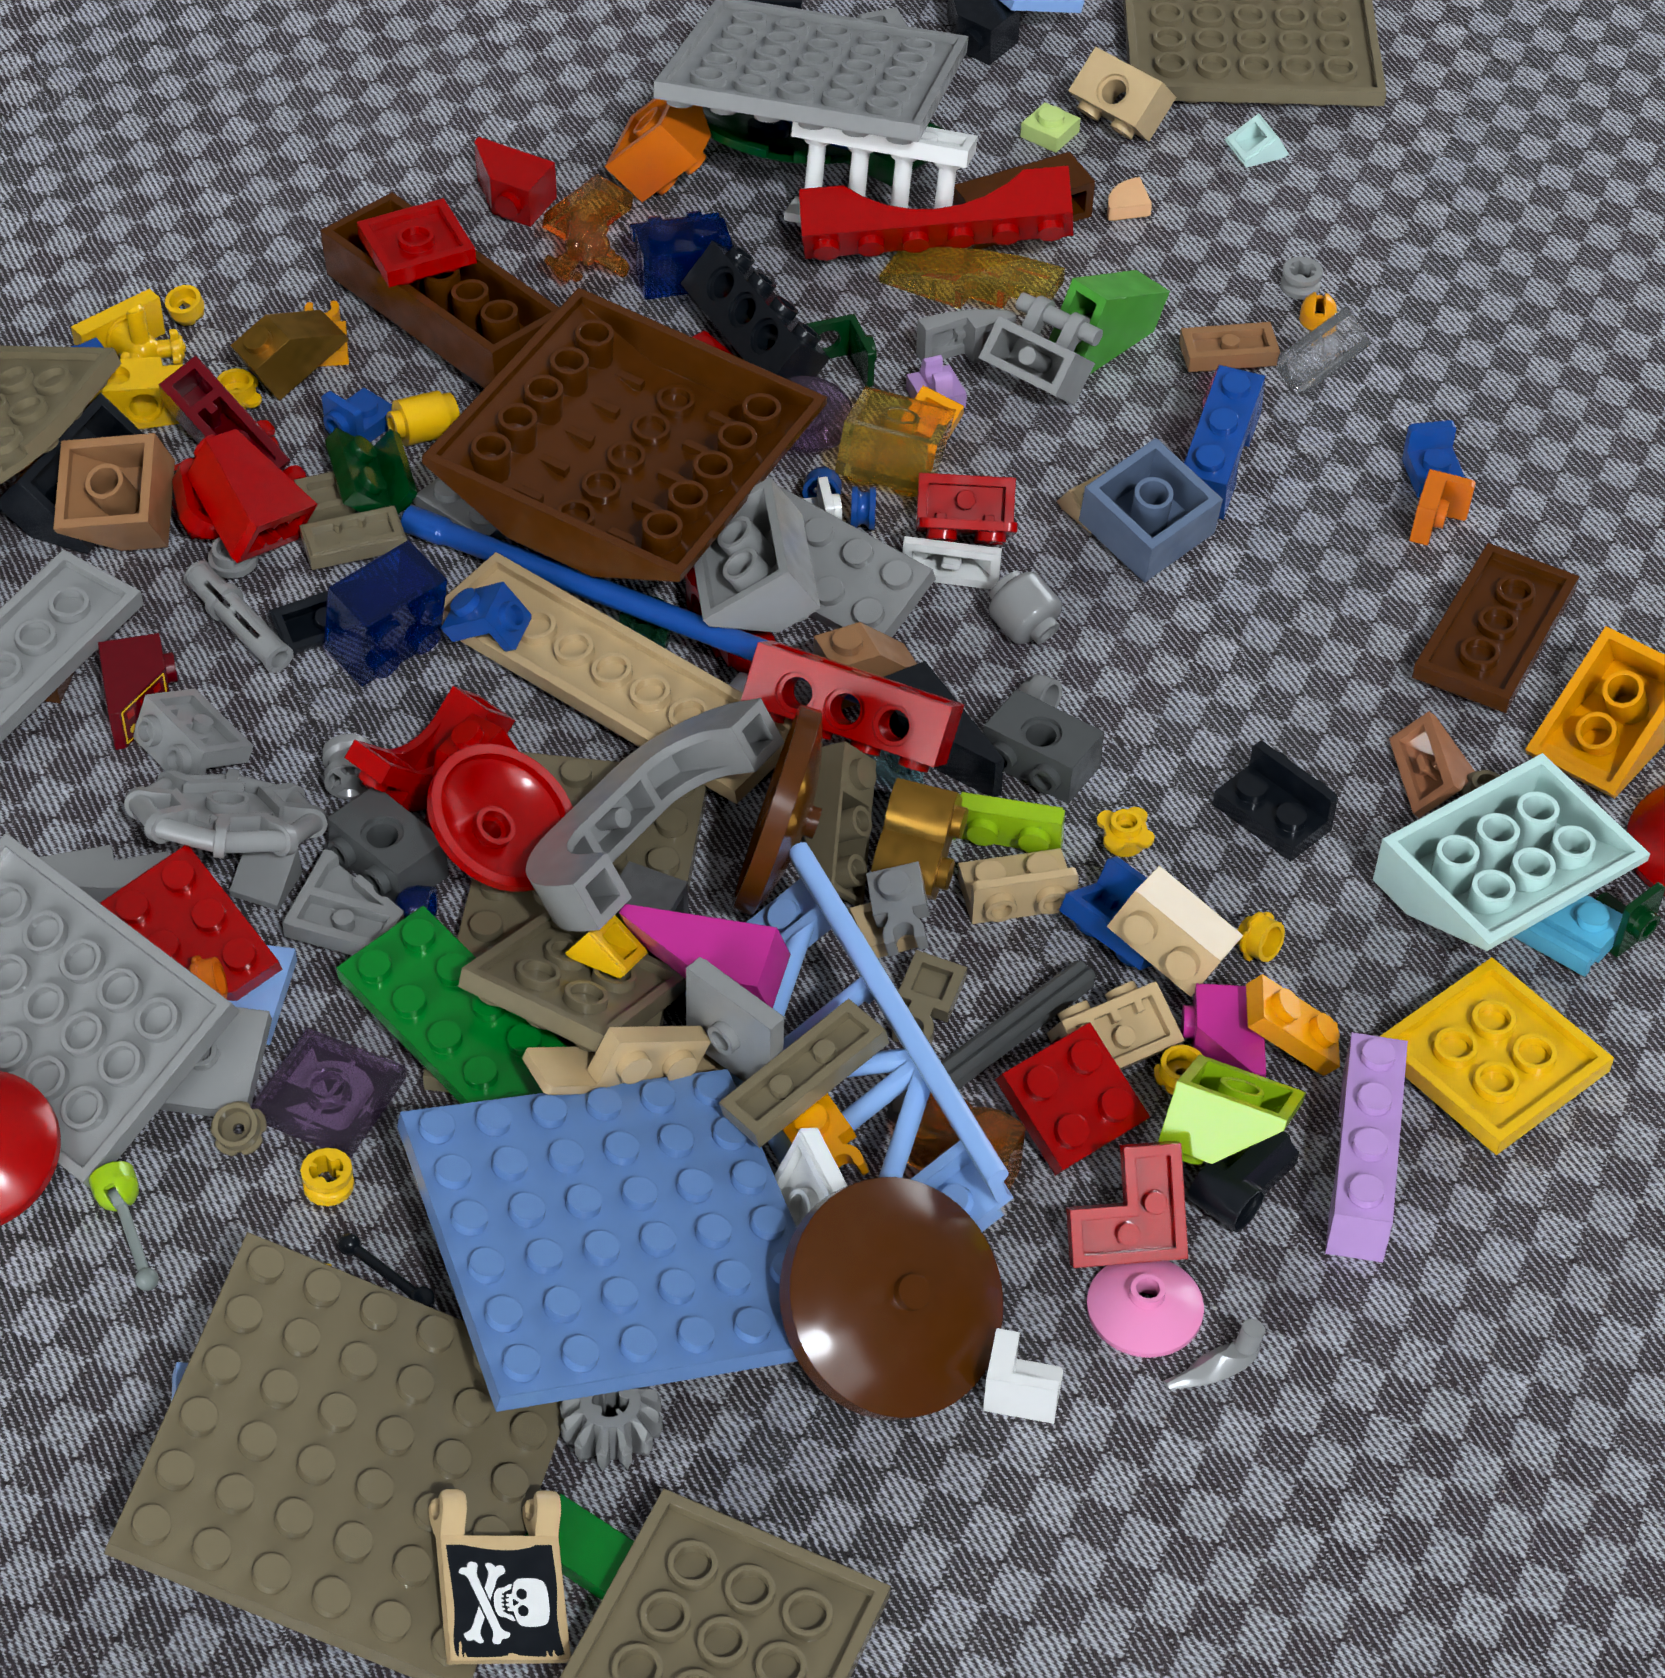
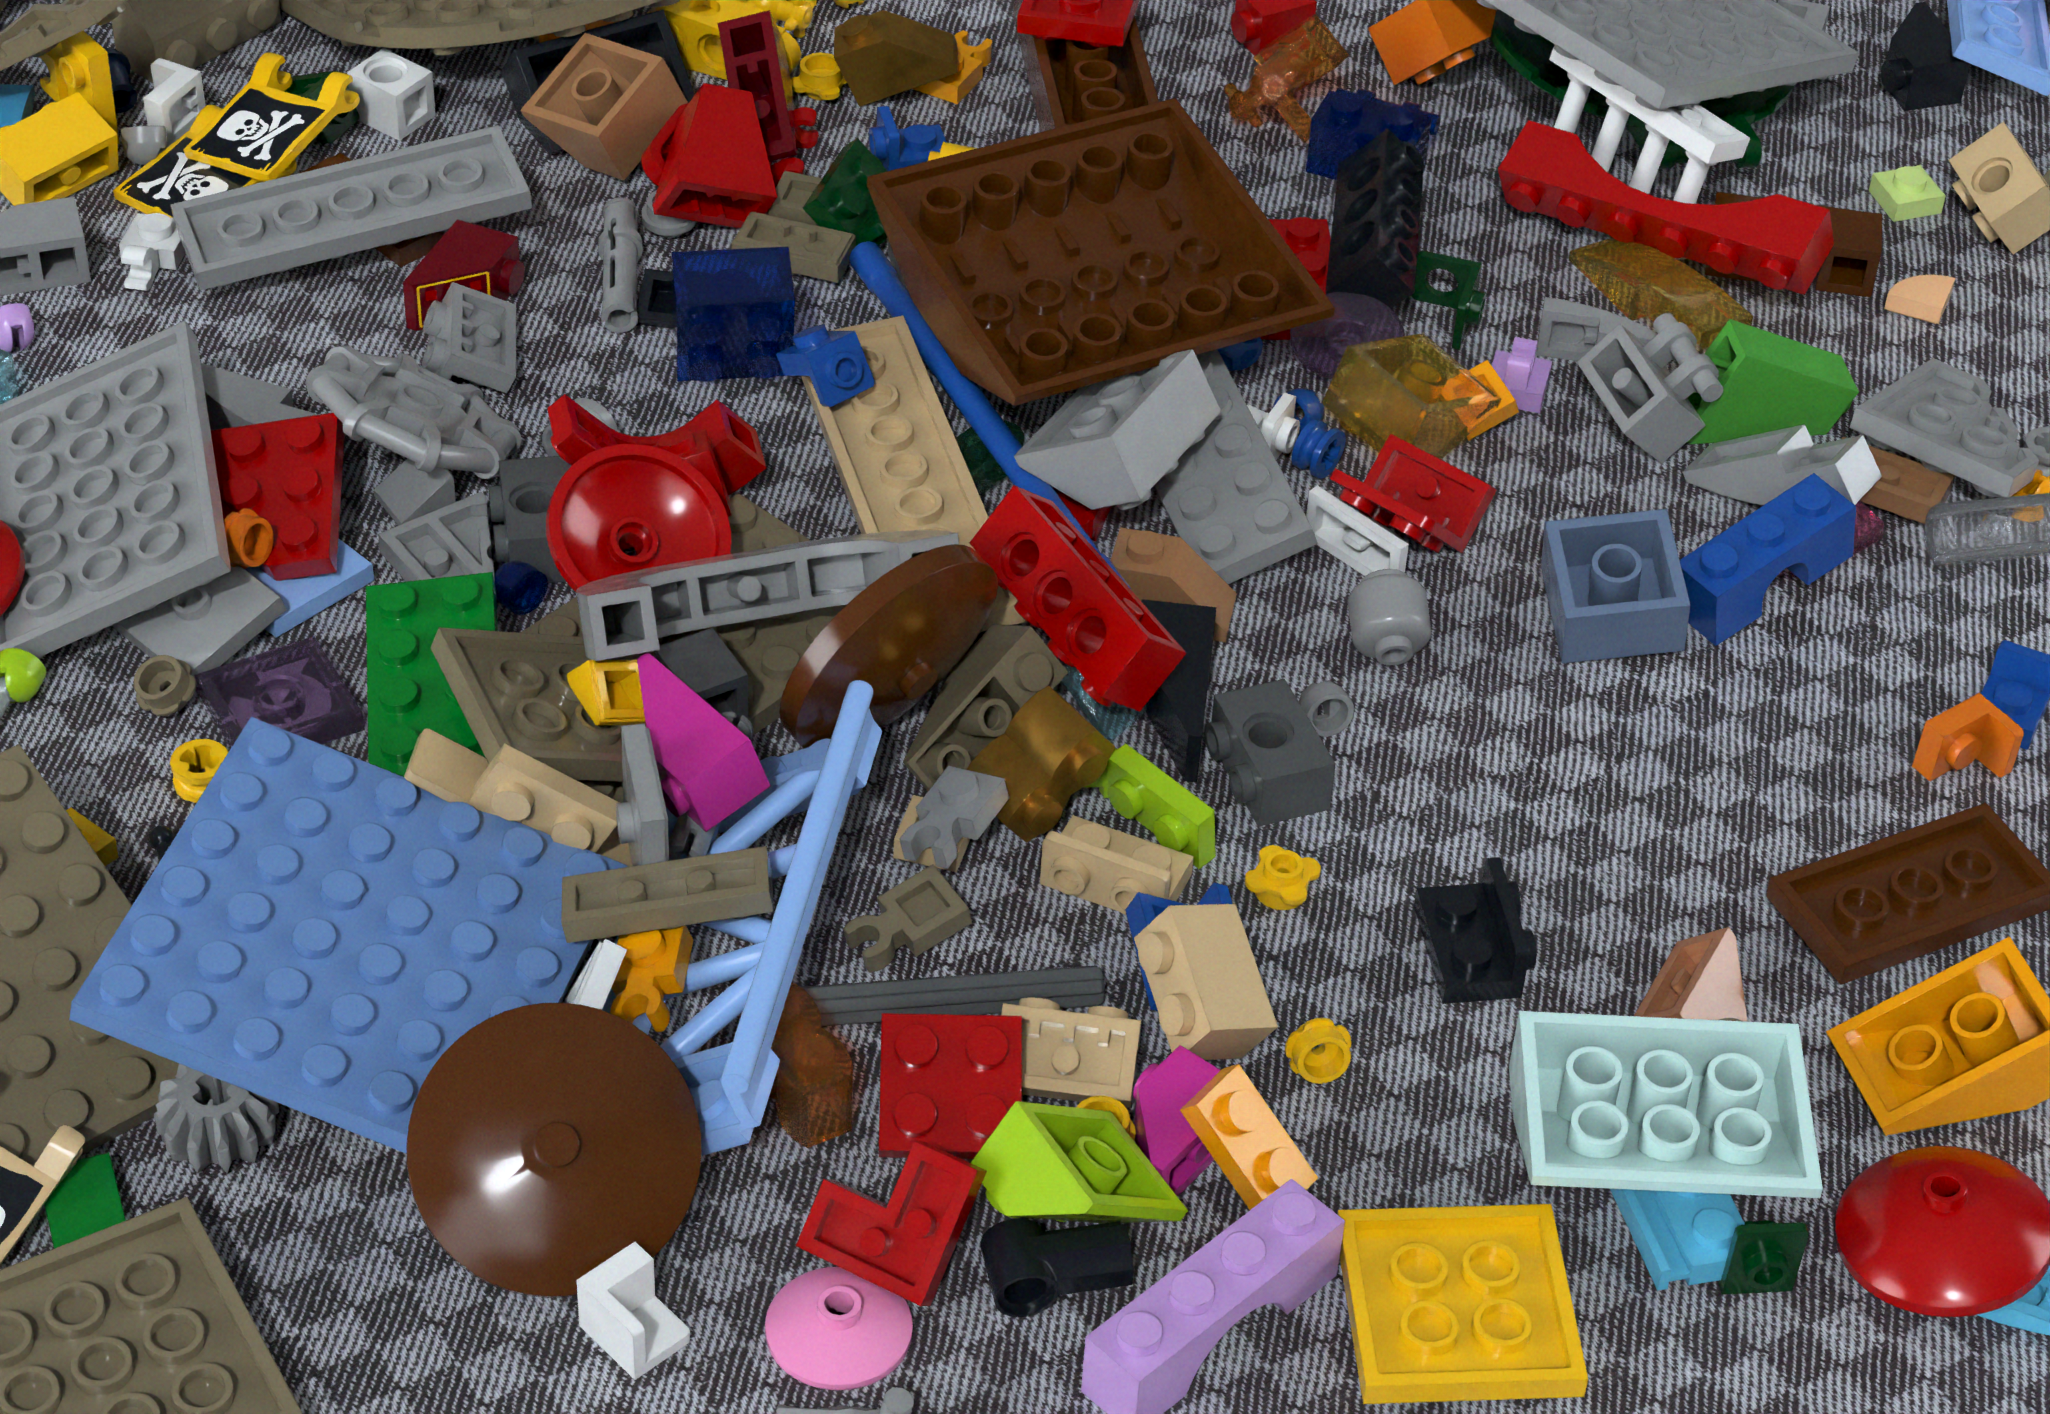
camera: 35 degrees right, 5 degrees down
(1168, 370) = (1774, 461): none -> light grey slope
(1227, 288) = (1950, 427): none -> light grey plate

